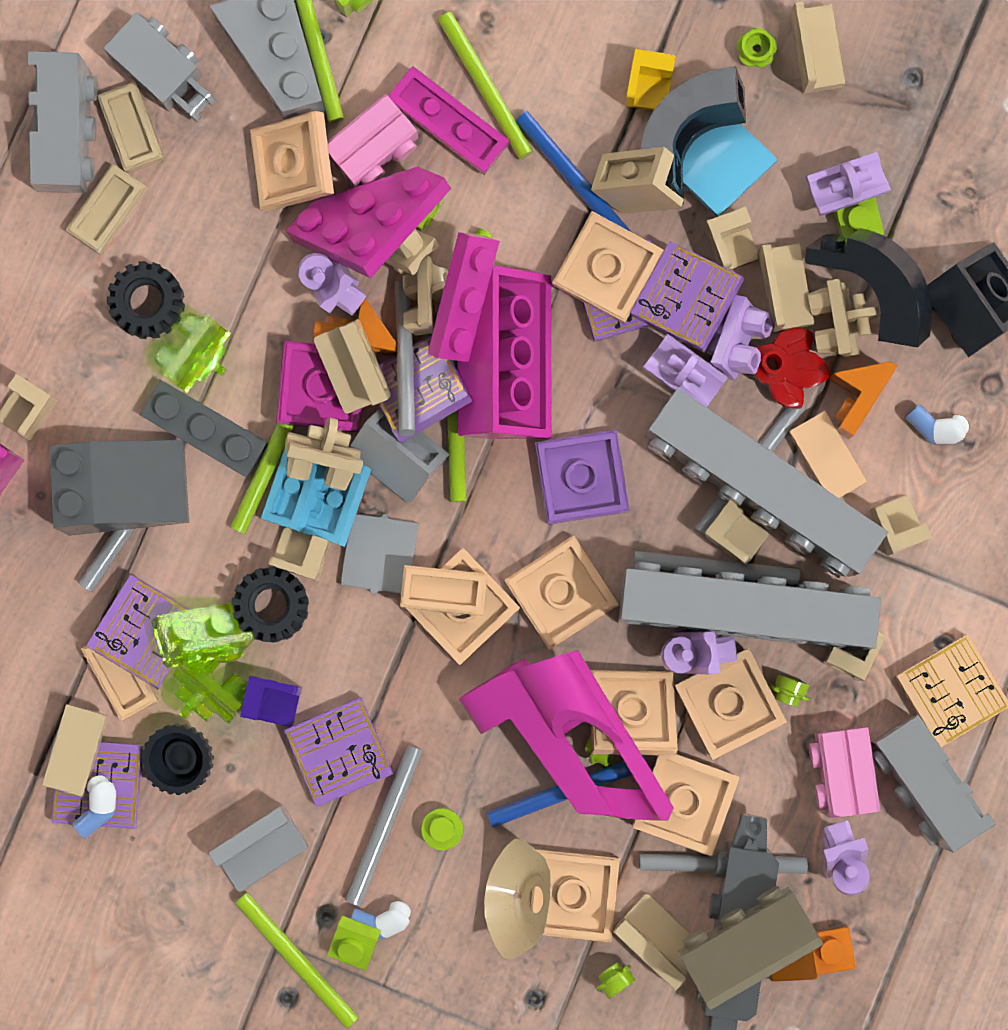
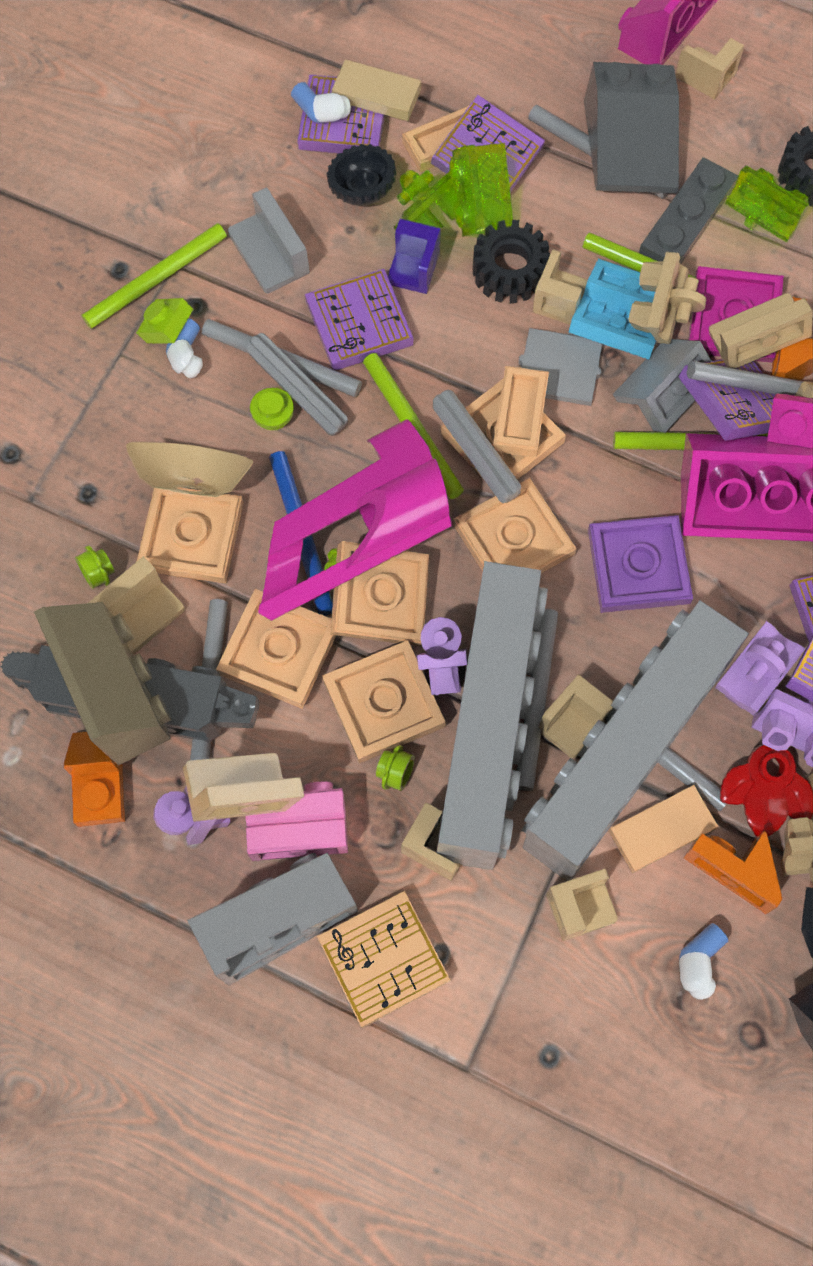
camera: 90 degrees right, 15 degrees down
(418, 806) = (296, 384): none -> light grey axle
(450, 693) = (404, 411): none -> lime bar
(484, 631) = (476, 446): none -> light grey axle
(833, 820) = (239, 787): none -> tan panel

